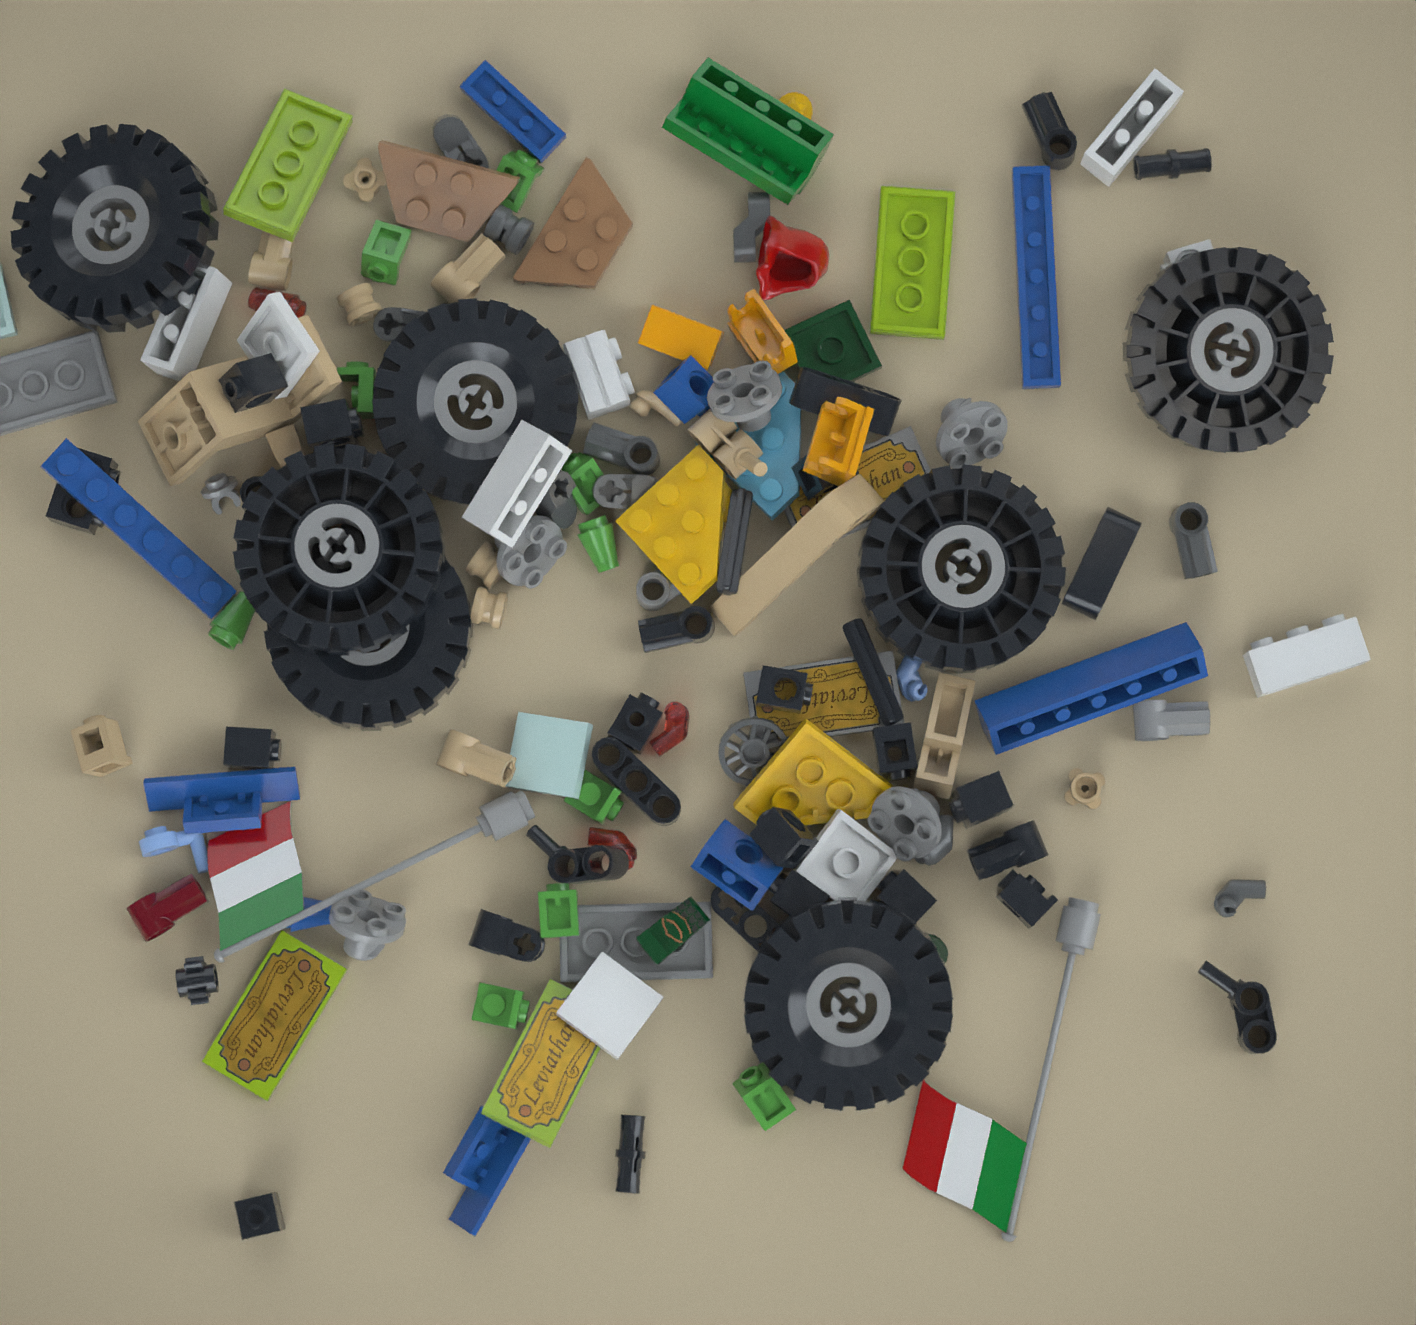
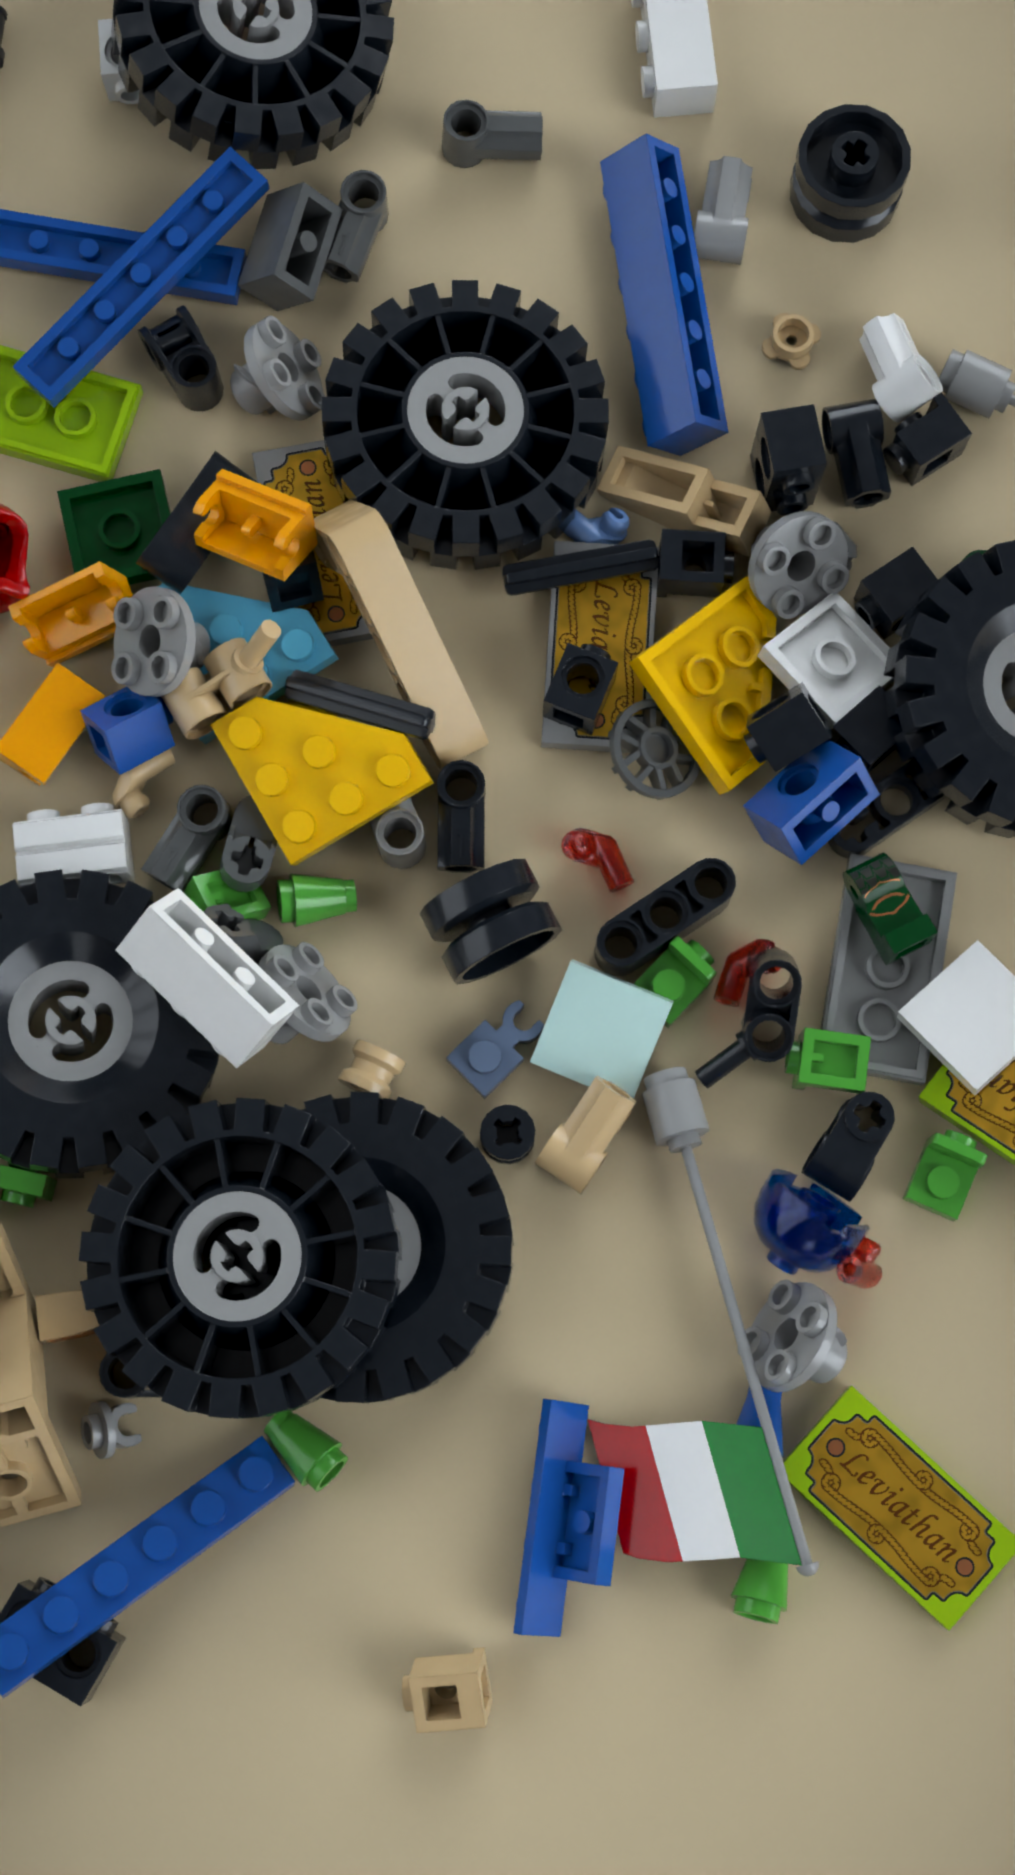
camera: 80 degrees left, 5 degrees down
(158, 911) = (715, 1649): dark red piece -> none
(160, 841) = (609, 1626): light blue plate -> none
(197, 980) = (830, 1612): black gear -> none
(201, 934) = (761, 1591): none -> bright green cone
(251, 748) = (501, 1460): black brick -> none
(332, 424) = (51, 1237): black brick -> none
(426, 960) = (860, 1268): none -> clear red arm
(444, 916) = (805, 1225): none -> clear blue cylinder
(468, 716) = (508, 1148): none -> black wheel
(485, 565) = (310, 1062): tan wheel -> none
(519, 684) = (489, 1054): none -> sand blue plate
(607, 659) = (490, 921): none -> black wheel
(632, 736) = (585, 918): black brick -> none
(974, 357) = (181, 353): none -> black piece
(1017, 319) = (141, 277): none -> blue plate
(1067, 416) = (290, 247): none -> dark grey brick
(1067, 872) = (901, 373): none -> white piece
(1091, 458) = (356, 225): none -> dark grey piece
(1101, 563) = (494, 249): black beam -> none
(1235, 892) = (963, 187): dark grey arm -> none
(1241, 799) = (849, 173): none -> black wheel

